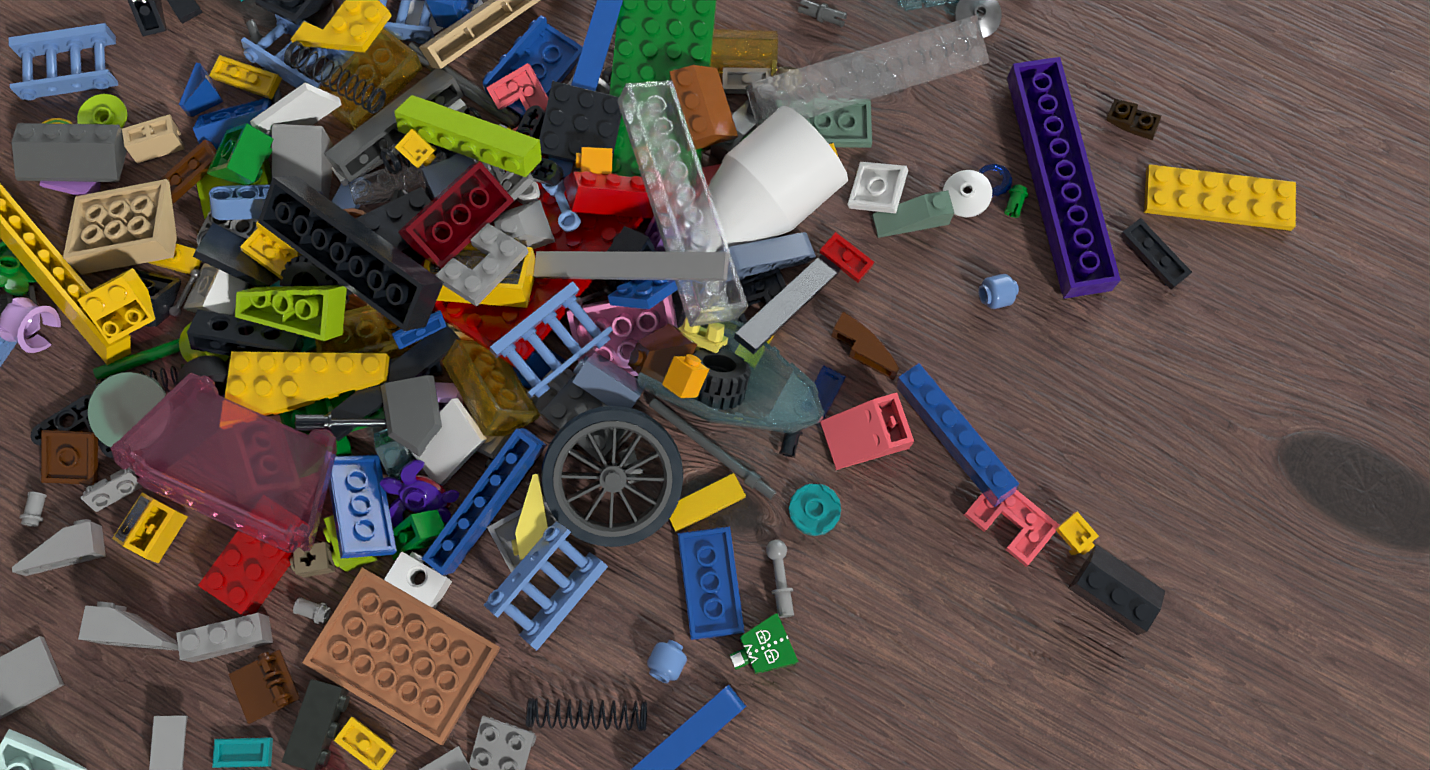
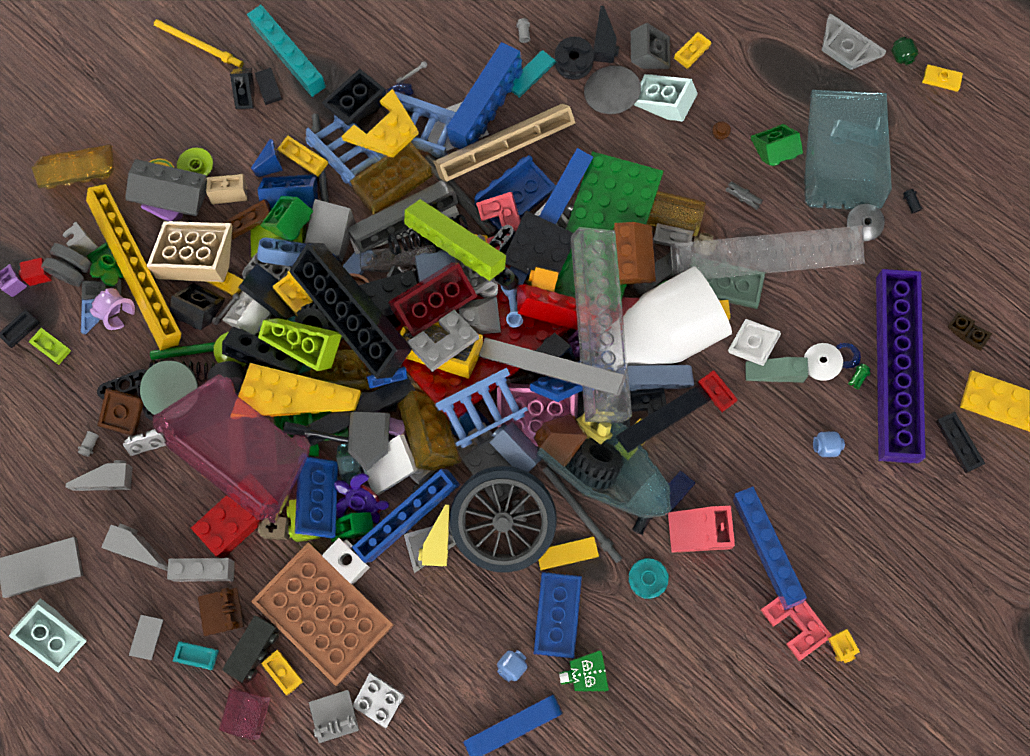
camera: 20 degrees right, 0 degrees up
(59, 41) = (176, 101): medium blue fence -> none
(119, 306) = (178, 311): yellow slope -> none
(149, 528) = (165, 477): yellow slope -> none
(299, 107) = (335, 192): white tile -> none
(312, 610) = (265, 564): light grey pin -> none
(382, 97) = (391, 192): black piece -> none
(416, 149) = (414, 241): yellow bracket -> none
(532, 712) = (406, 677): black piece -> none
(562, 601) = (447, 601): medium blue fence -> none
(685, 376) = (573, 459): light orange brick -> none
(776, 551) = (612, 603): light grey pin -> none
(865, 346) = (715, 463): reddish brown slope -> none
(1118, 591) = (865, 696): black slope -> none

